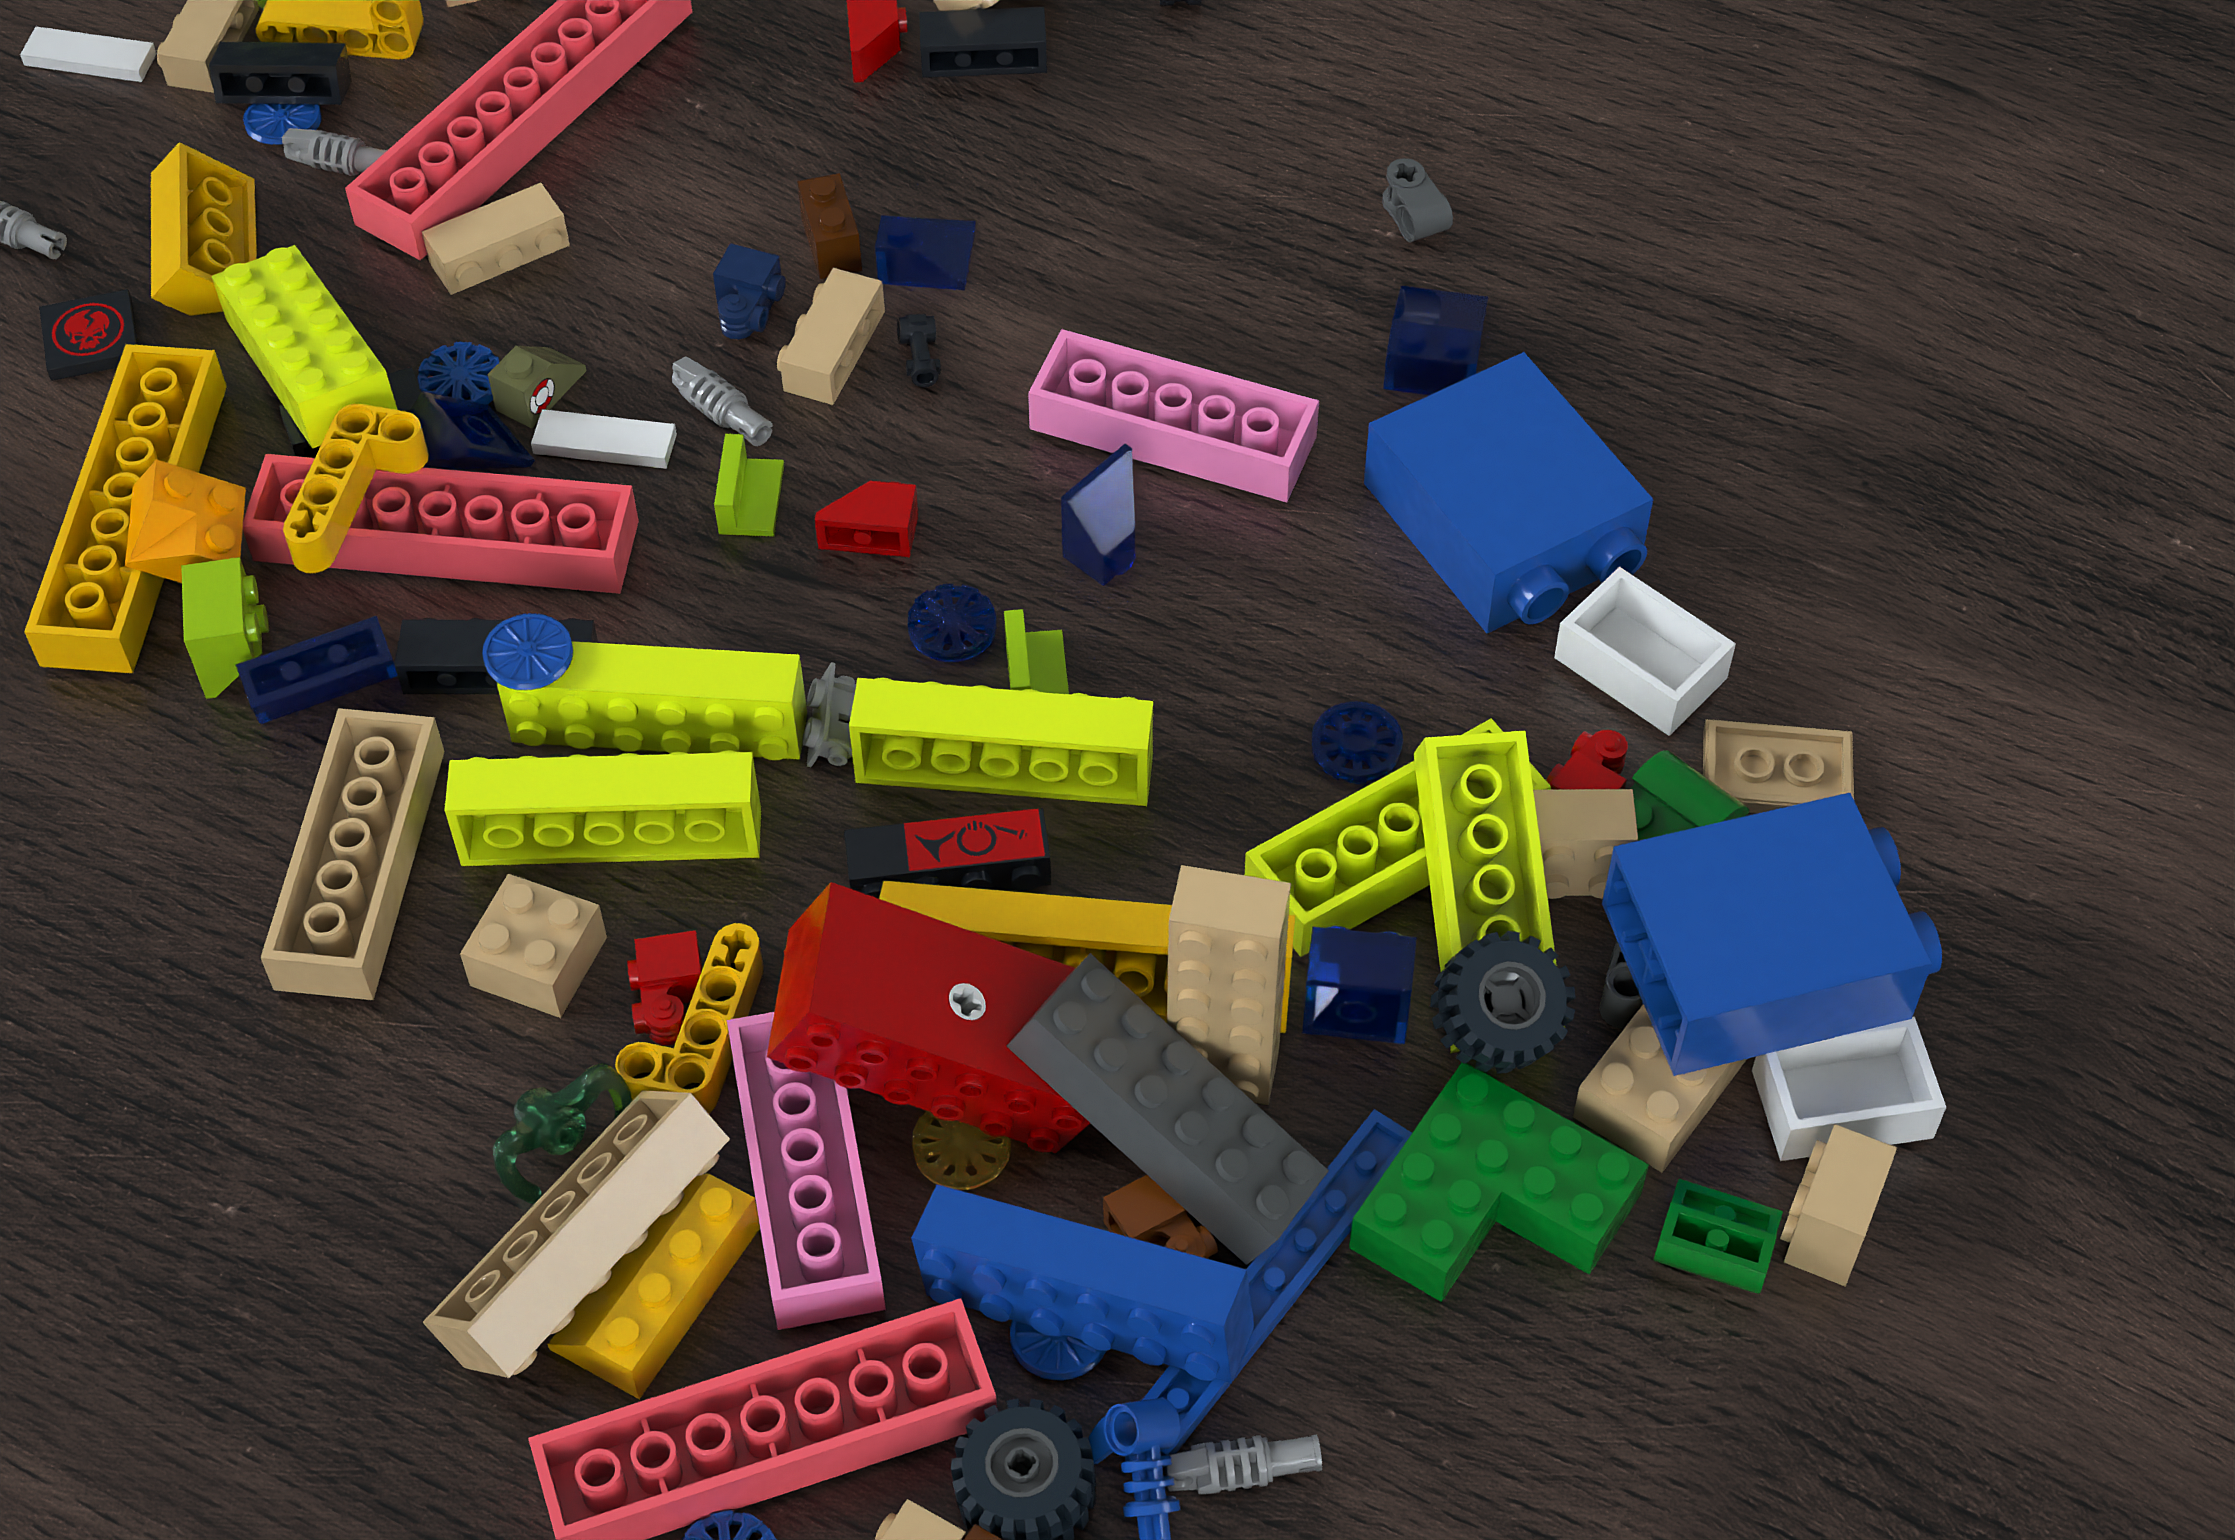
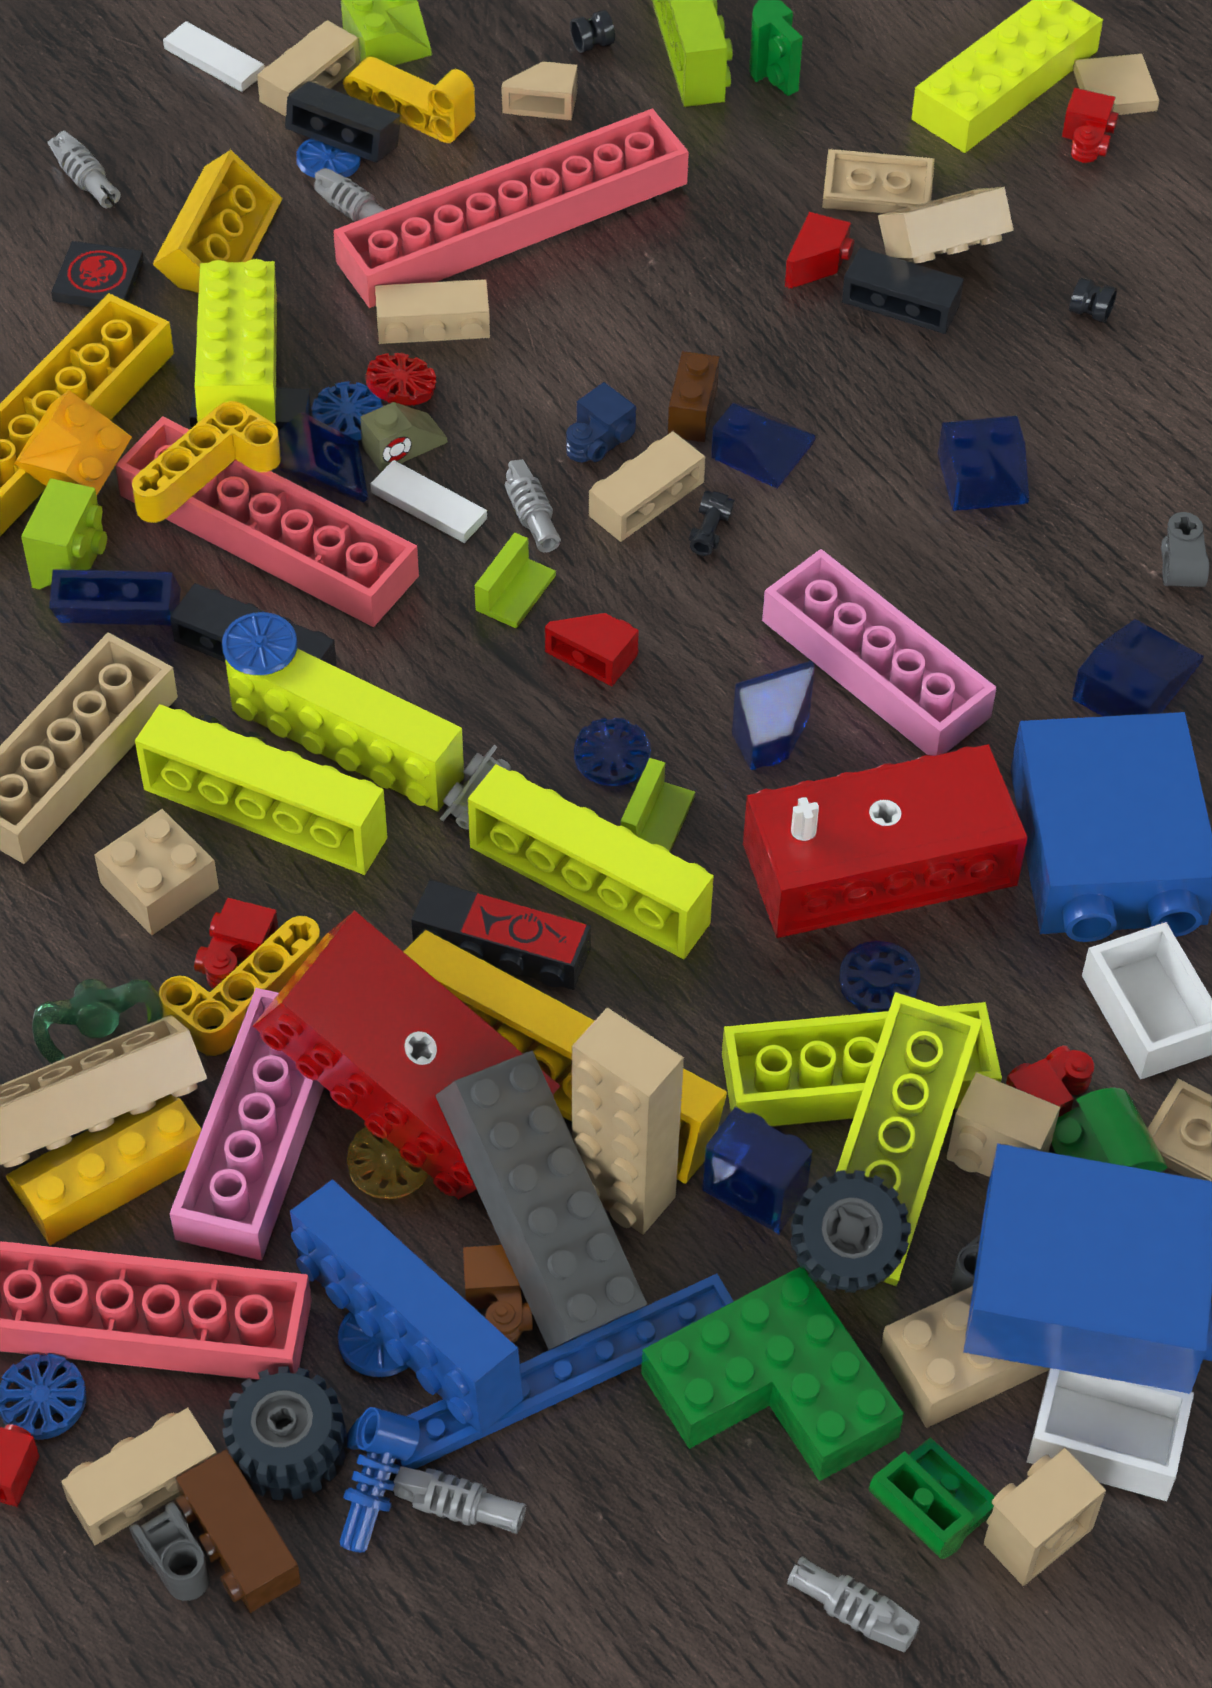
camera: 25 degrees right, 0 degrees up
(501, 321) = (390, 375): none -> red wheel
(1166, 185) = (984, 463): none -> clear blue slope
(1289, 600) = (883, 840): none -> red piece
(1703, 1380) = (856, 1605): none -> light grey hinge

